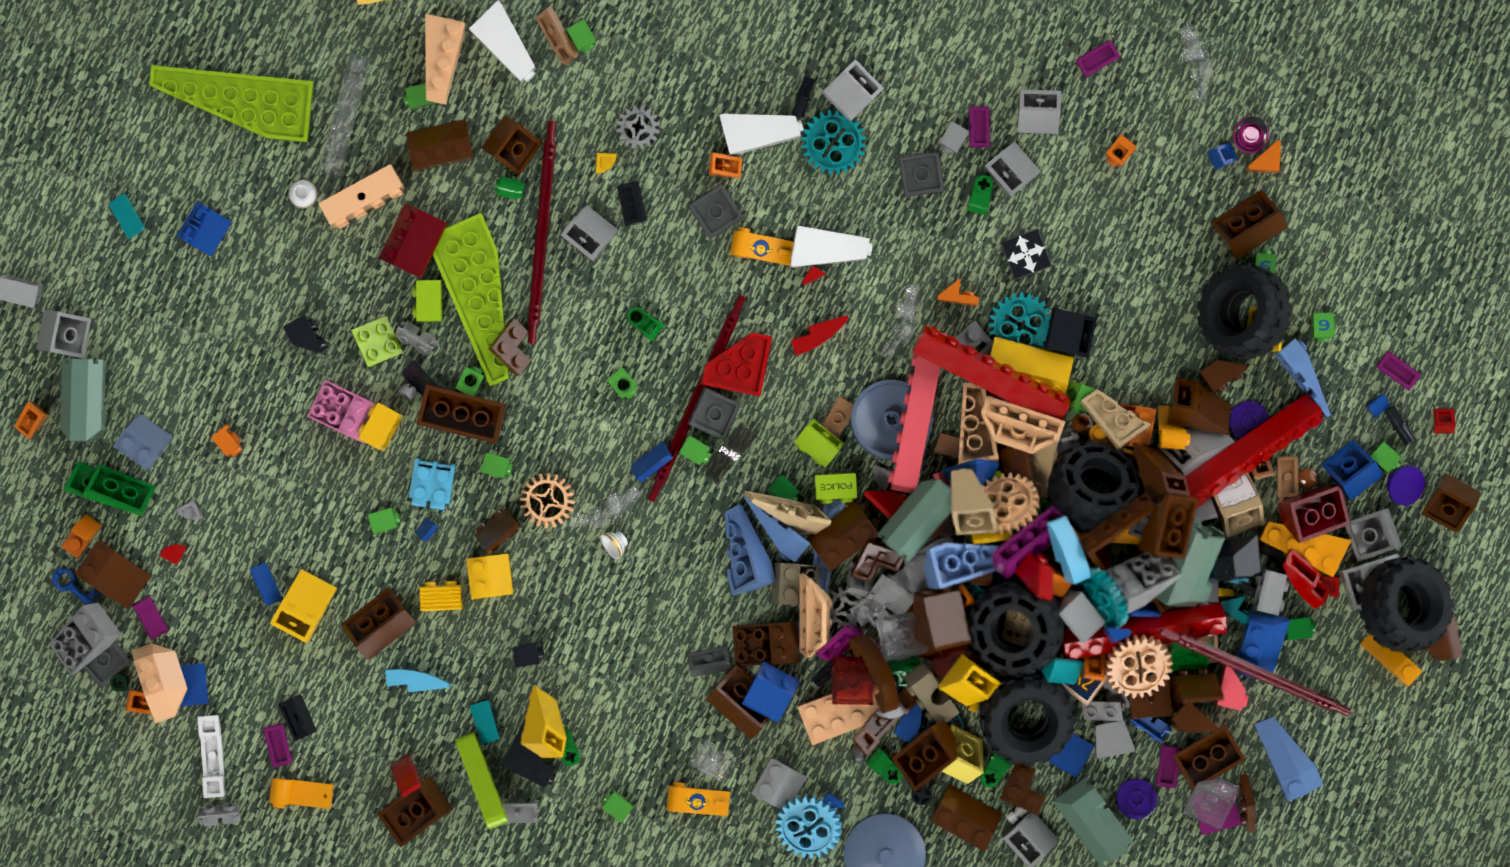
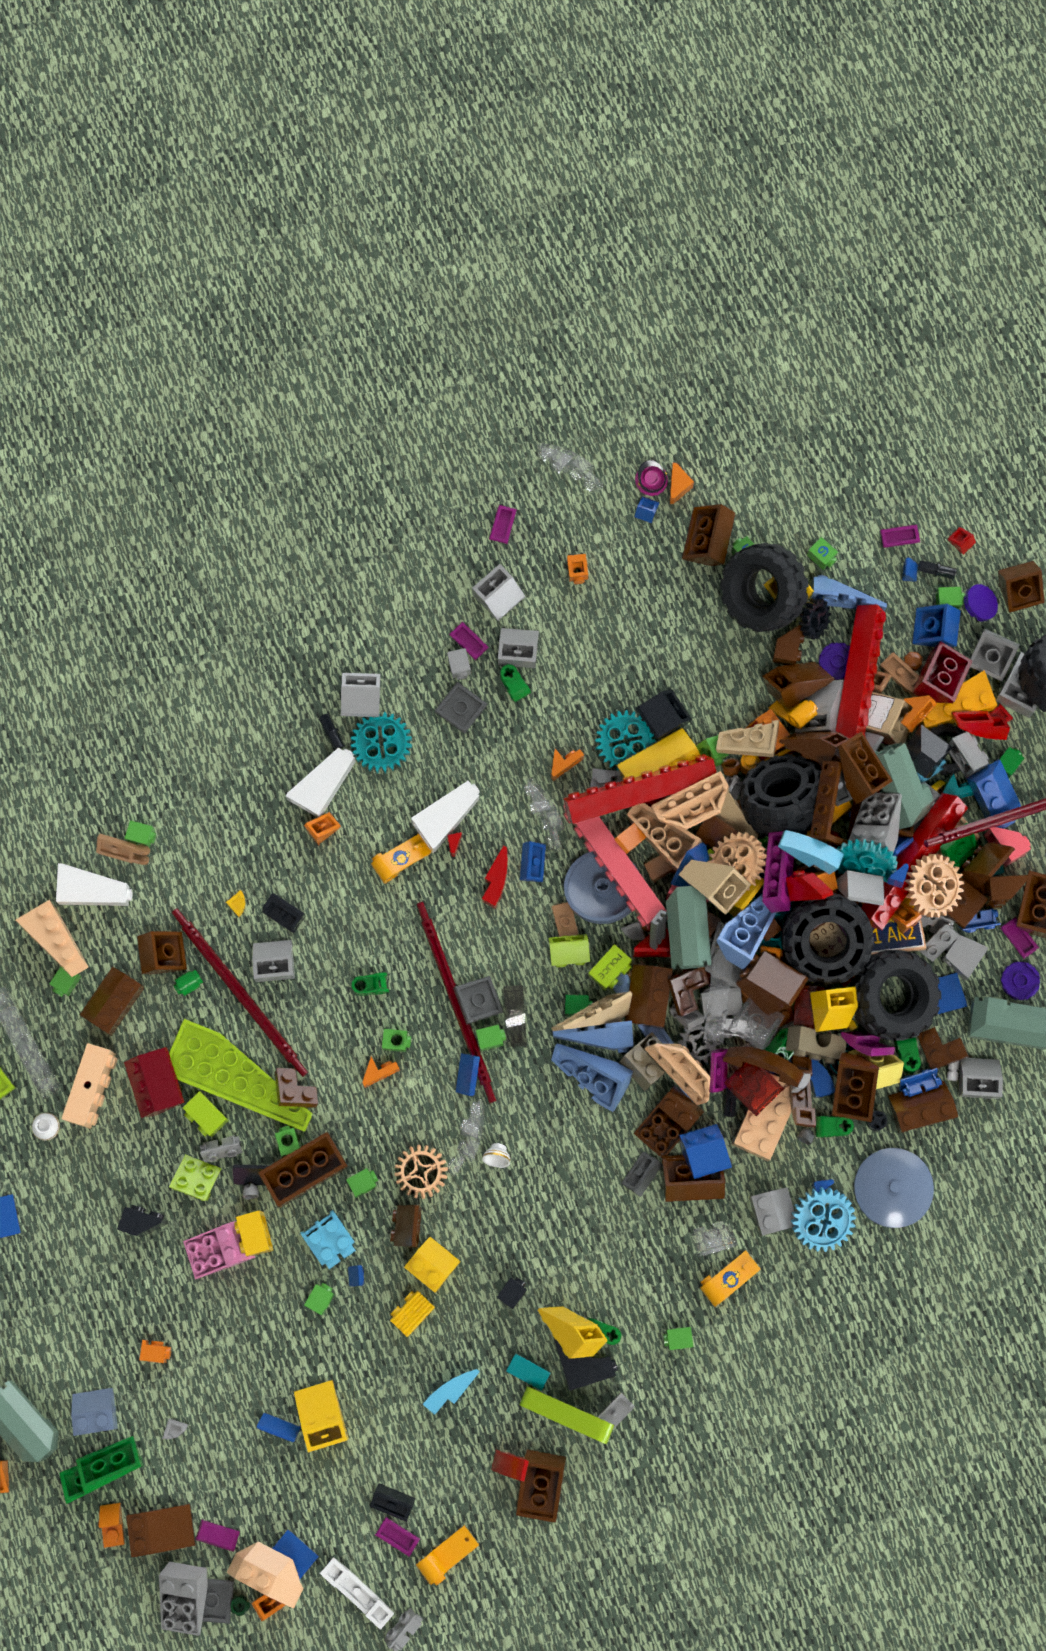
camera: 45 degrees left, 10 degrees down
(71, 586) = (138, 1569): blue piece -> none
(173, 553) = (190, 1471): red tile -> none
(378, 623) = (386, 1376): reddish brown slope -> none
(582, 394) = (374, 1075): none -> orange slope
(628, 125) = (244, 855): light grey gear -> none
(715, 211) = (346, 864): dark grey tile -> none
(740, 366) = (464, 950): red plate -> none
(858, 348) = (532, 862): none -> blue slope
(895, 496) = (658, 929): none -> dark grey tile
(947, 404) = (630, 838): none -> orange slope
(970, 732) = (867, 1043): none -> magenta slope
(974, 793) = (911, 1084): none -> blue hinge
(1026, 254) = (582, 693): black tile -> none
(1063, 671) = (887, 938): teal slope -> none
(1262, 372) = (815, 618): none -> black gear
(1268, 523) = (920, 707): none -> orange slope

